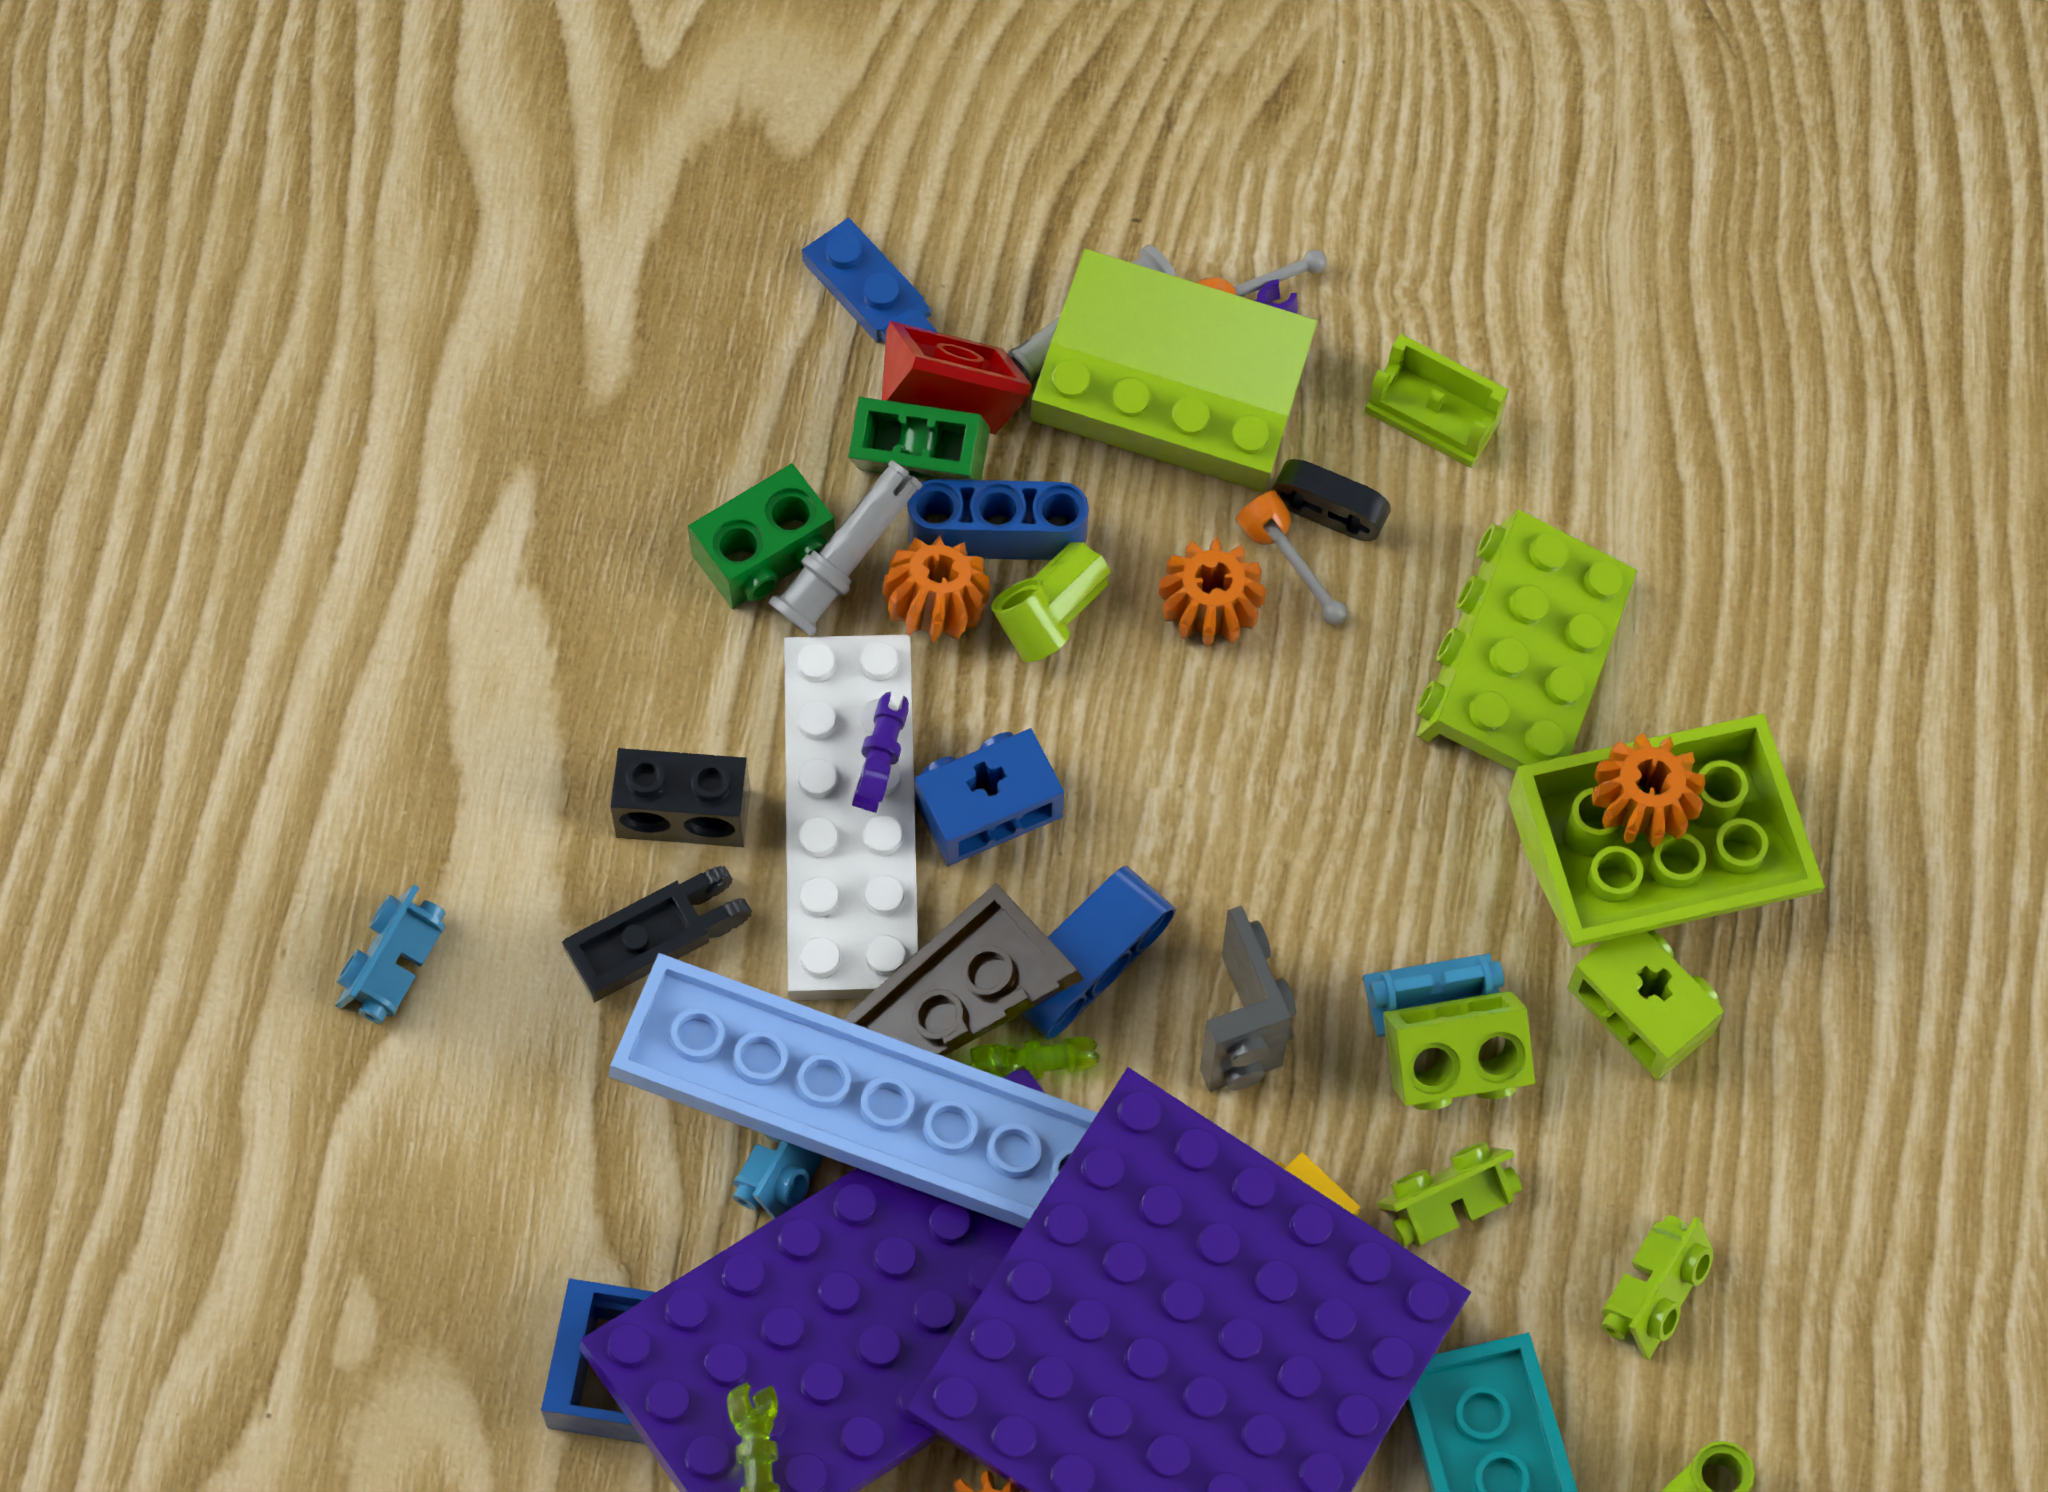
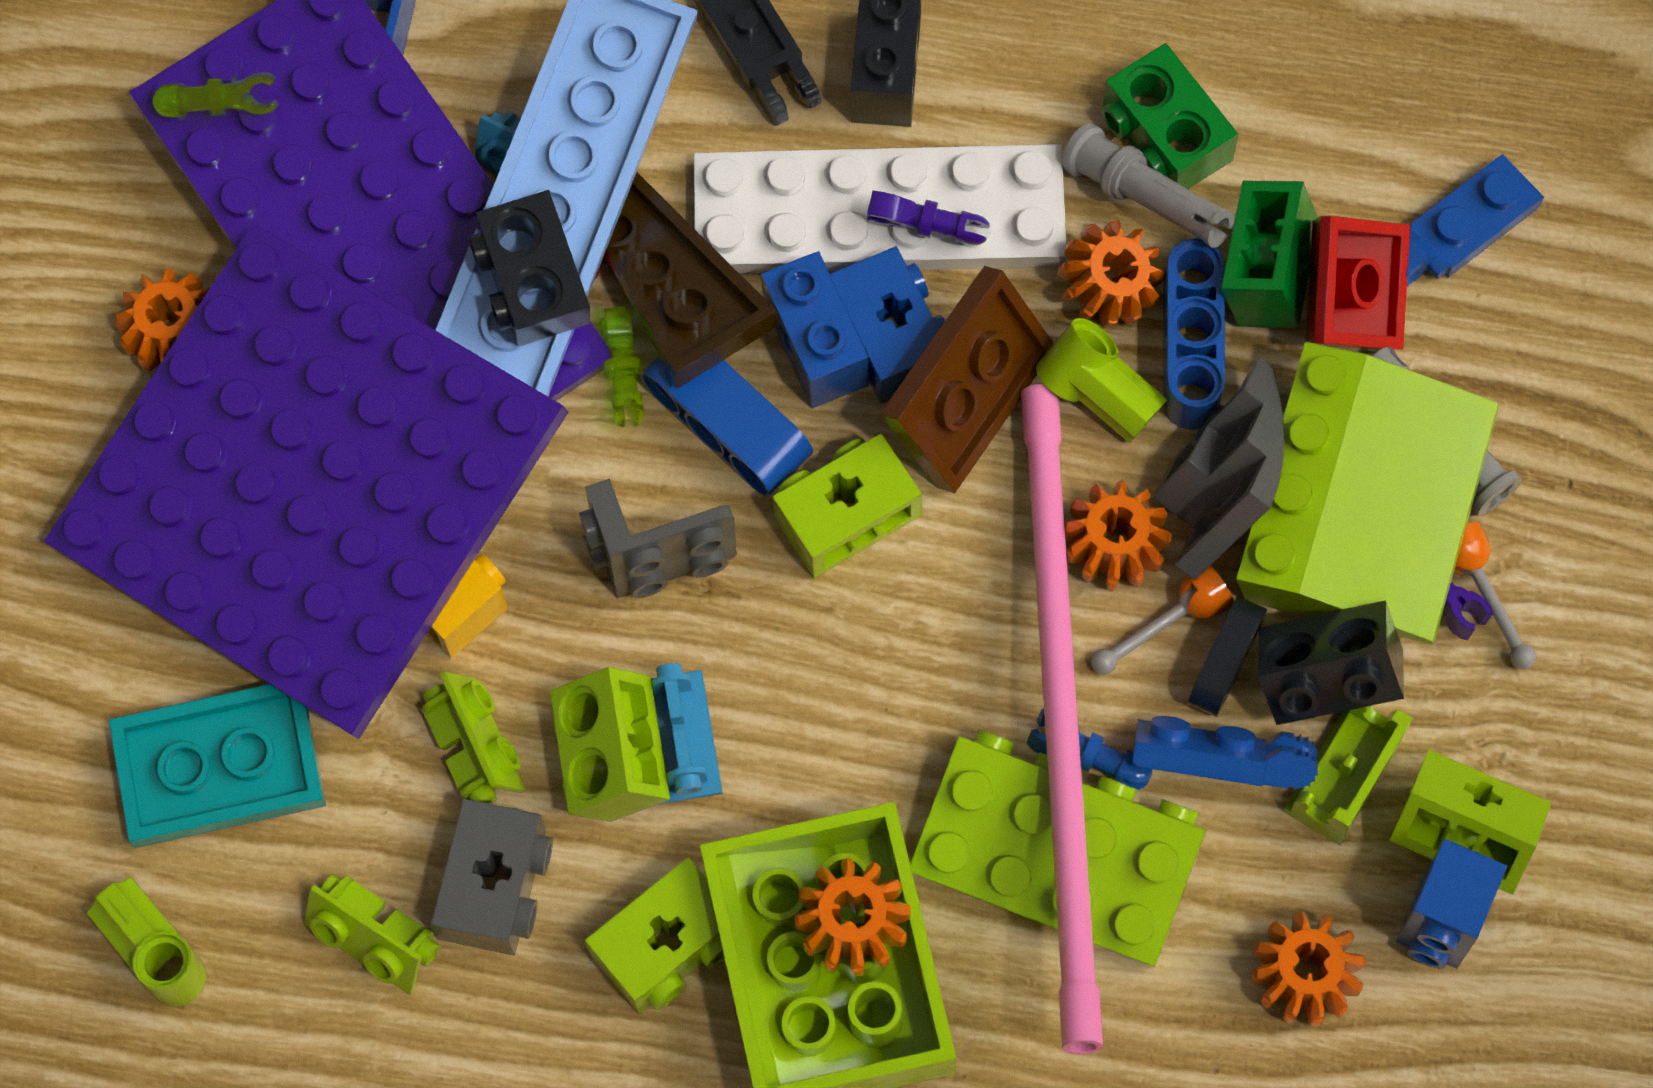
camera: 95 degrees right, 5 degrees up
(960, 1093) = (542, 266): none -> black brick
(1015, 850) = (816, 330): none -> blue brick
(1058, 713) = (968, 379): none -> reddish brown plate
(1160, 479) = (1227, 470): none -> dark grey slope
(1184, 803) = (832, 532): none -> lime brick
(1334, 403) = (1331, 663): none -> black brick
(1428, 623) = (1099, 756): none -> blue piece
(1431, 504) = (1225, 754): none -> blue hinge
(1489, 299) = (1472, 812): none -> lime brick
(1564, 1172) = (483, 840): none -> dark grey brick
(1577, 313) = (1450, 905): none -> blue brick
(1631, 441) = (1282, 959): none -> orange gear
(1701, 599) = (1078, 991): none -> bright pink piece

